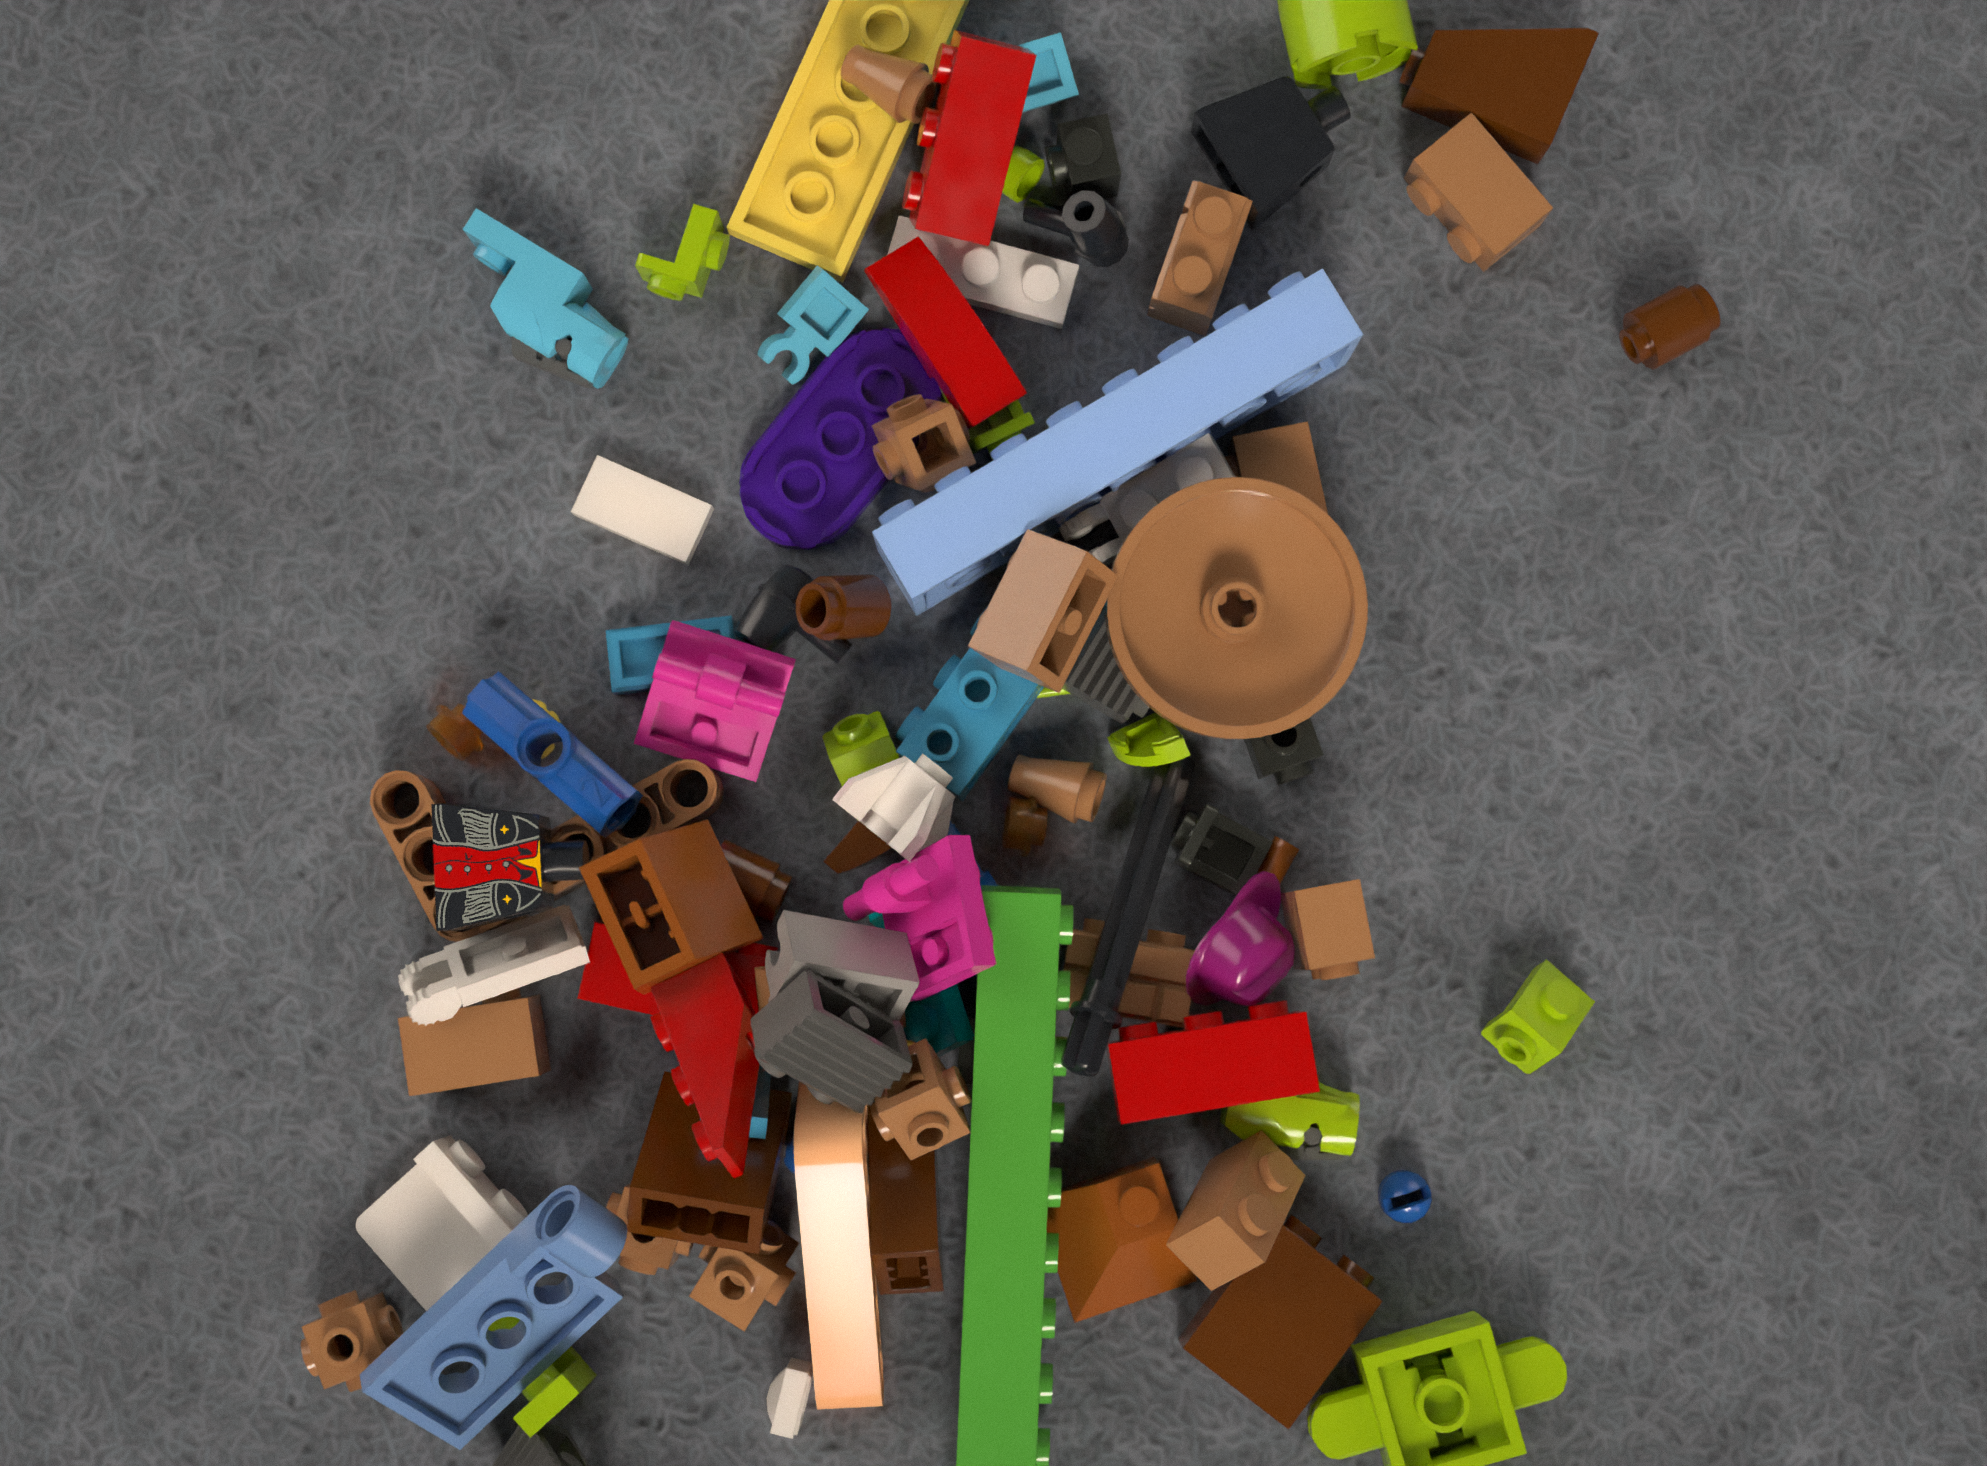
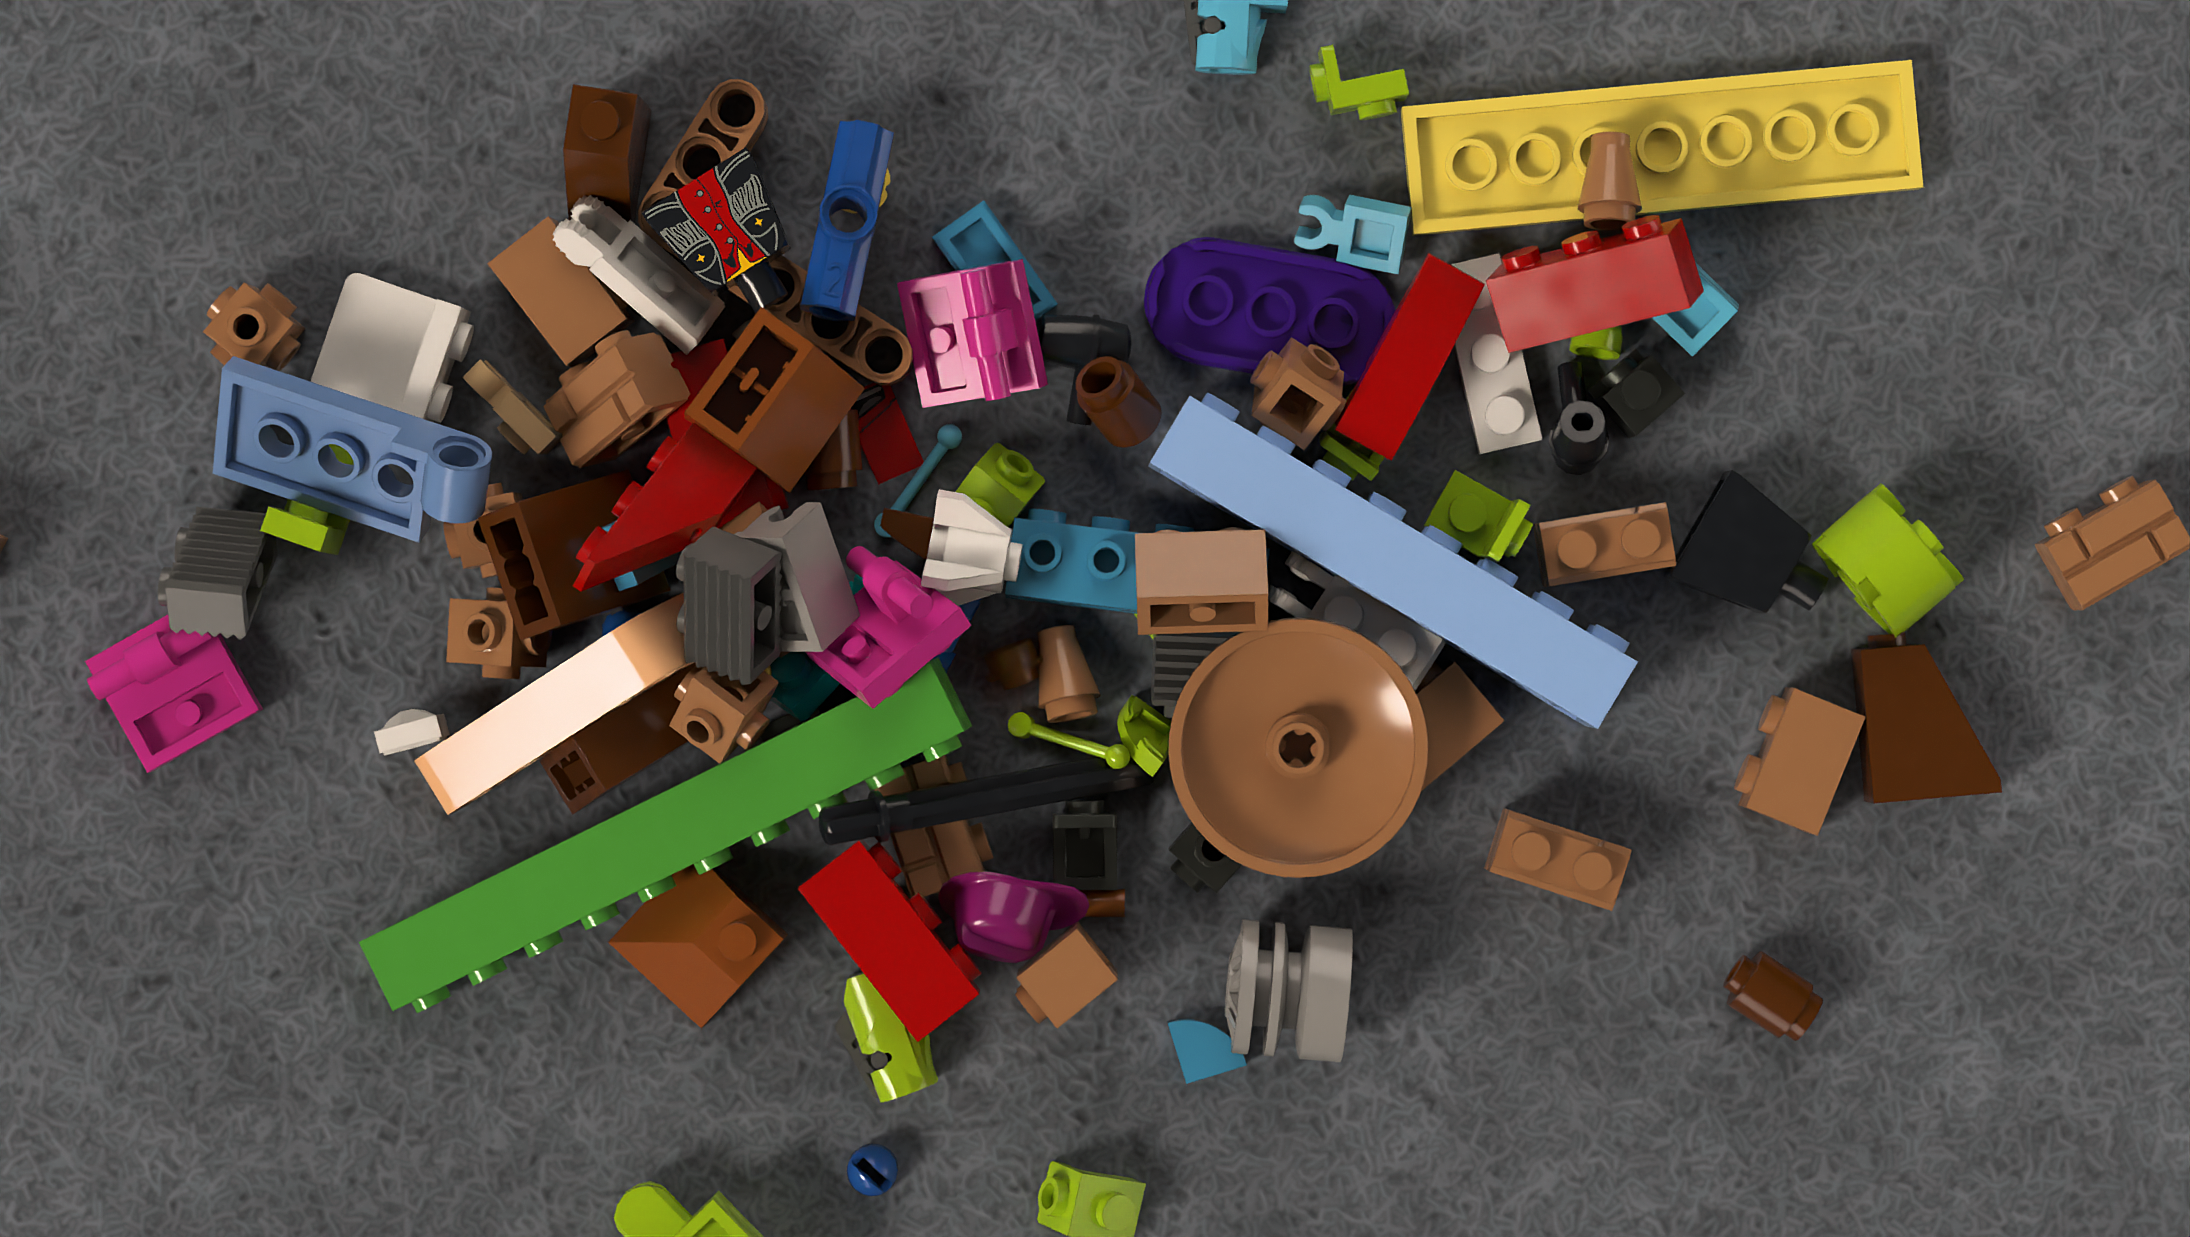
camera: 55 degrees right, 5 degrees up
(362, 930) = (605, 148): none -> reddish brown slope
(455, 732) = (822, 118): clear orange plate -> none
(572, 1143) = (523, 423): none -> tan plate
(593, 1046) = (615, 397): none -> medium nougat brick
(642, 510) = (1109, 171): white tile -> none
(761, 828) = (885, 434): none -> red sticker
(795, 774) = (948, 437): none -> medium azure hinge
(1083, 847) = (1024, 726): none -> lime hinge
(1121, 346) = (1480, 518): none -> lime bracket
(1236, 1211) = (779, 1027): medium nougat brick -> none
(1283, 1323) = (709, 1117): reddish brown brick -> none
(1452, 443) = (1558, 859): none -> medium nougat brick
(1452, 725) = (1291, 990): none -> light grey wheel
(1453, 843) = (1203, 1049): none -> dark azure tile

